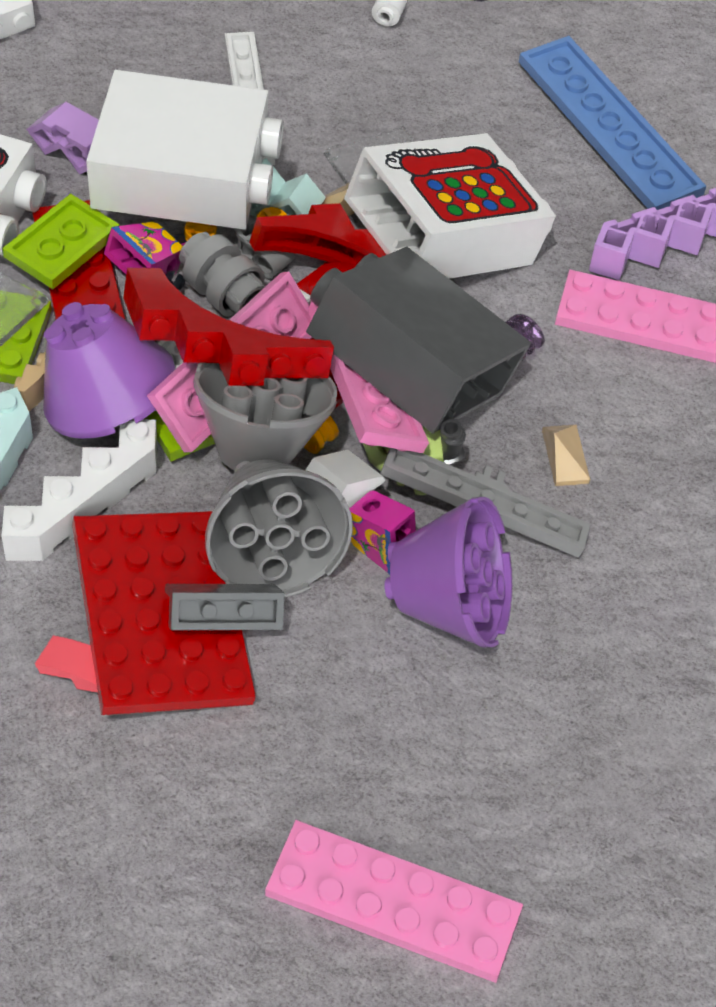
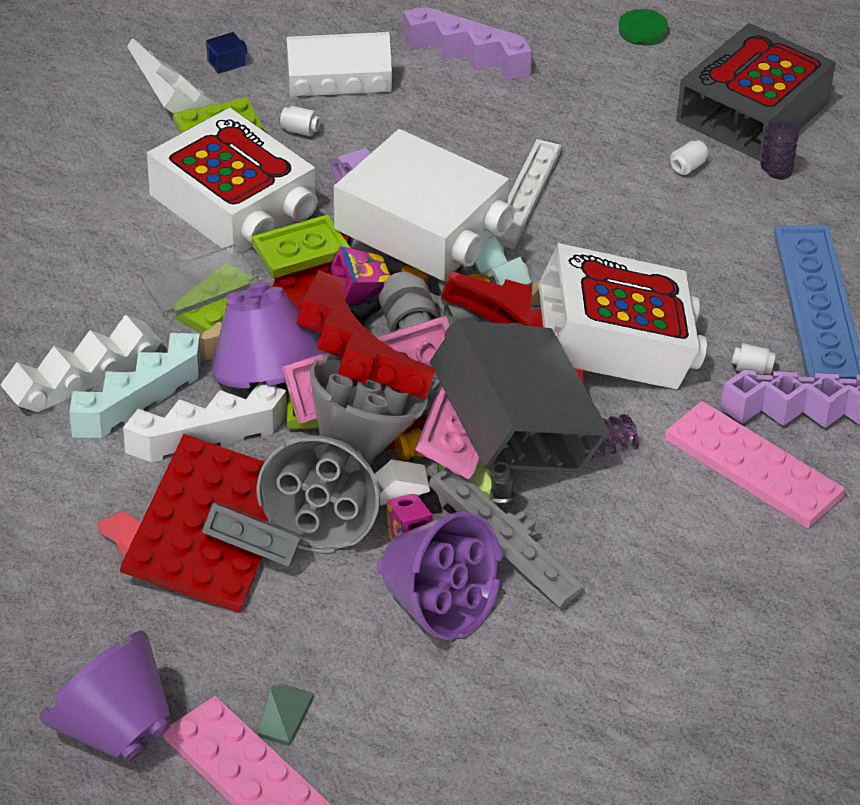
camera: 30 degrees right, 10 degrees down
(208, 887) = (113, 701): none -> medium lavender cone
(380, 807) = (283, 713): none -> sand green slope
(565, 455) = (602, 533): tan slope -> none
(590, 206) = (753, 358): none -> white brick

